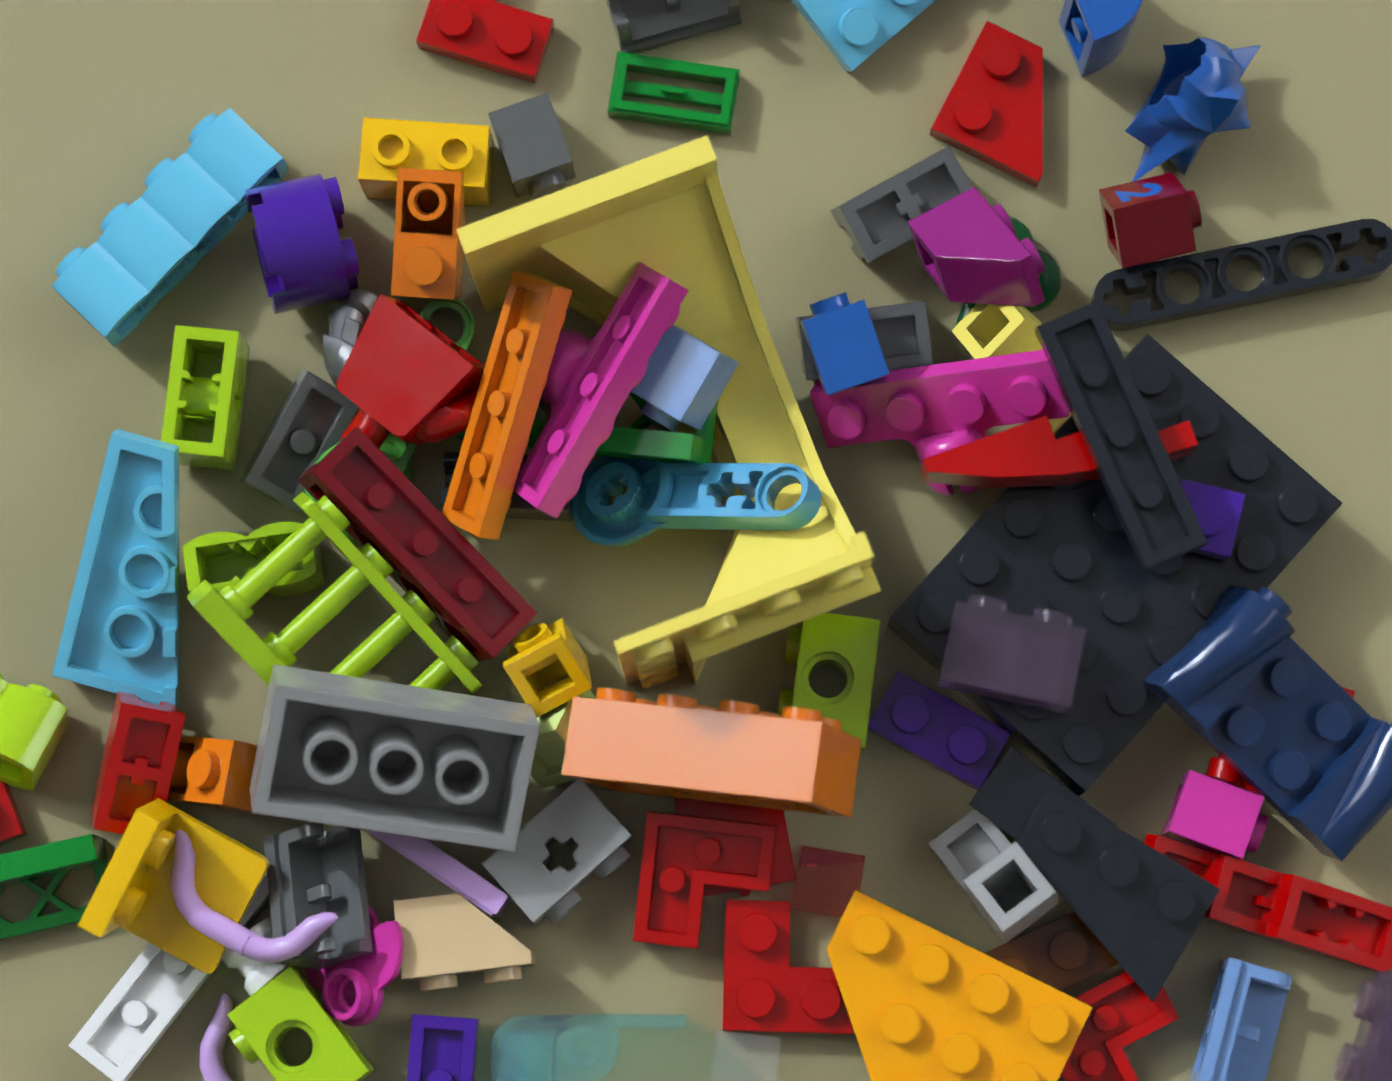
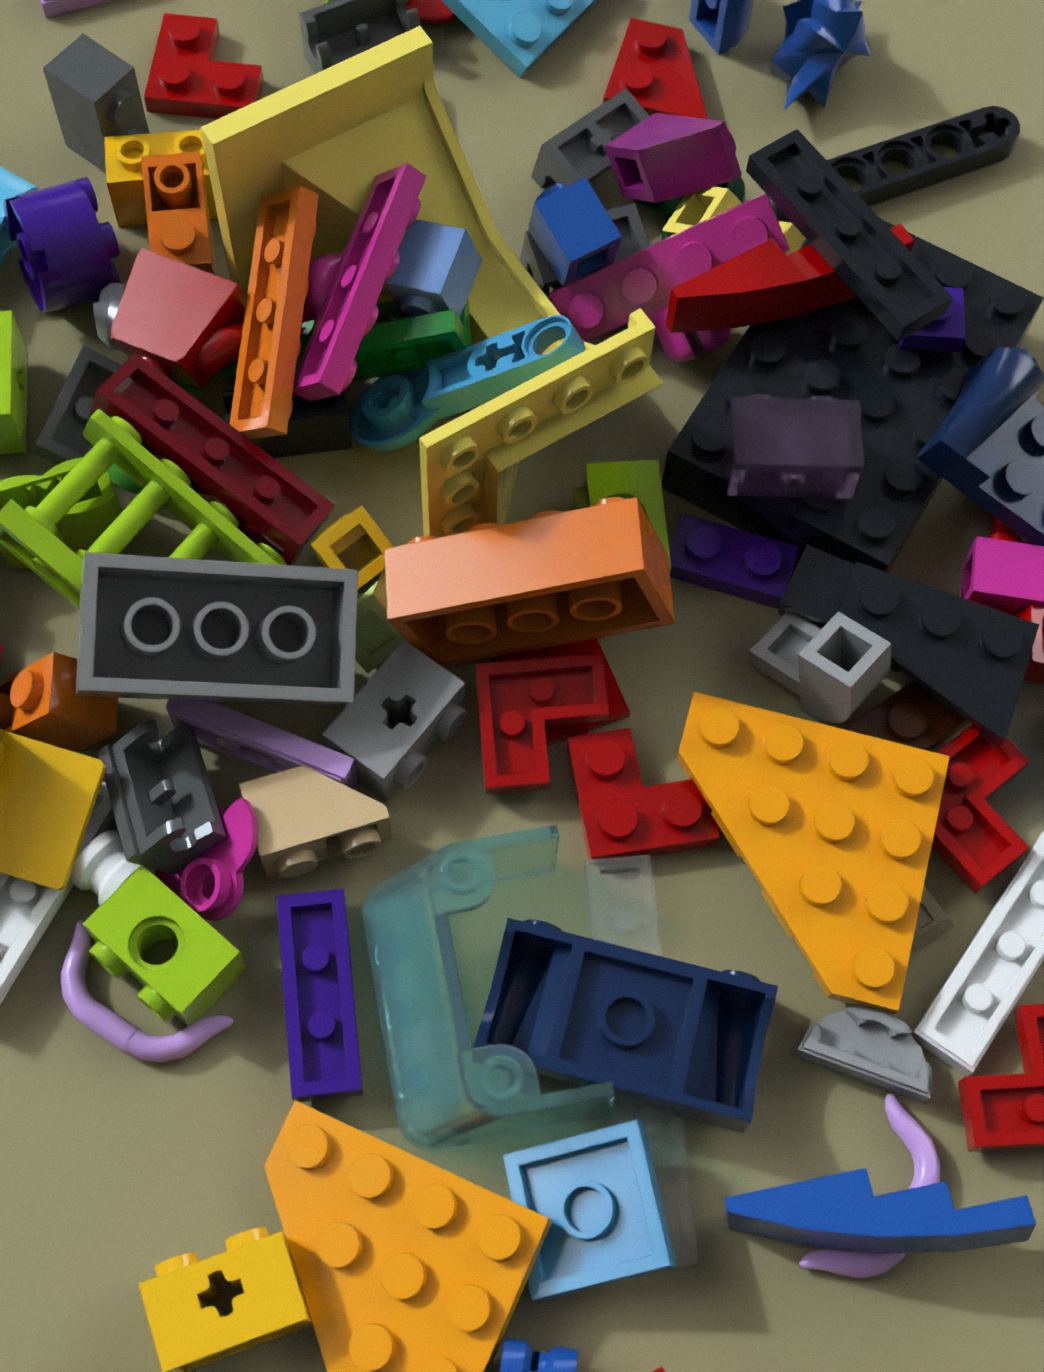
camera: 20 degrees left, 15 degrees down
(228, 931) = (73, 835): lavender animal -> none
(363, 67) = (94, 98): none -> dark grey brick
(826, 880) = (658, 707): clear red tile -> none
(1149, 219) = (821, 118): dark red brick -> none

